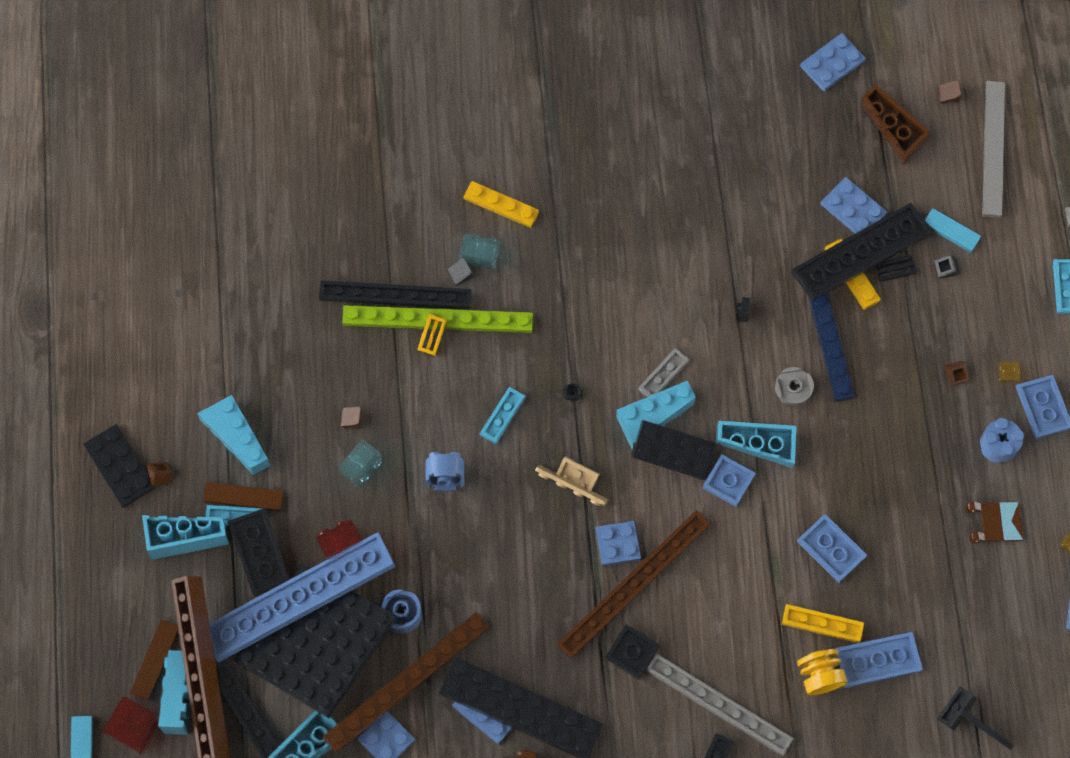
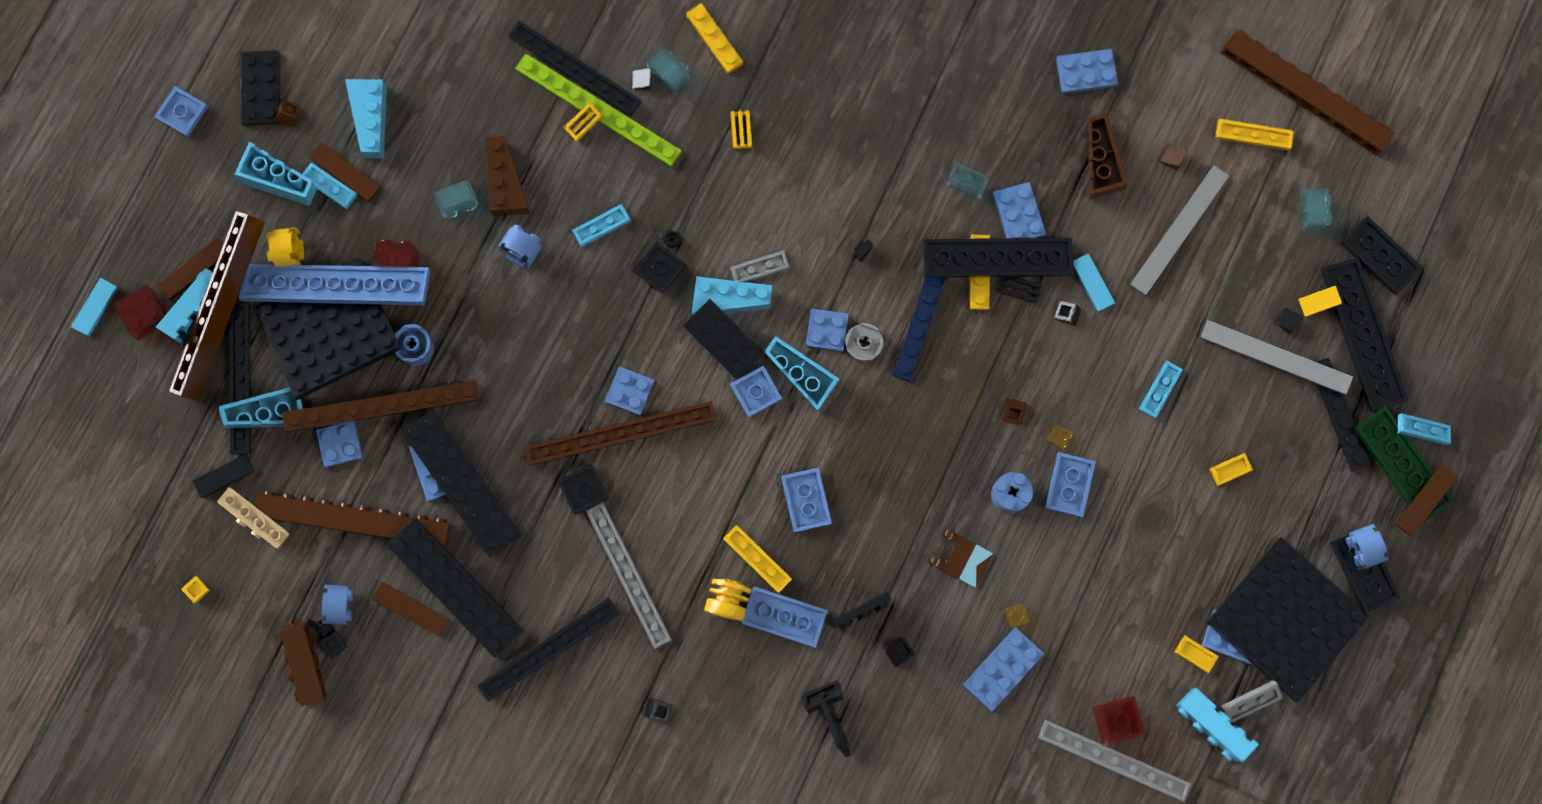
camera: 30 degrees right, 10 degrees up
(58, 526) = (181, 111): none -> medium blue plate
(231, 590) = (285, 247): none -> yellow brick
(258, 551) = (328, 226): black plate -> none
(351, 417) = (474, 155): slope -> none
(394, 424) = (505, 189): none -> reddish brown wedge
(576, 477) = (627, 315): tan bracket -> none
(577, 422) = (659, 267): none -> black plate
(588, 276) = (740, 114): none -> yellow tile
(755, 394) = (827, 330): none -> medium blue plate
(795, 203) = (967, 180): none -> clear light blue brick
(945, 612) = (862, 611): none -> black plate
(995, 633) = (900, 652): none -> black slope
(1003, 38) = (1254, 134): none -> yellow plate

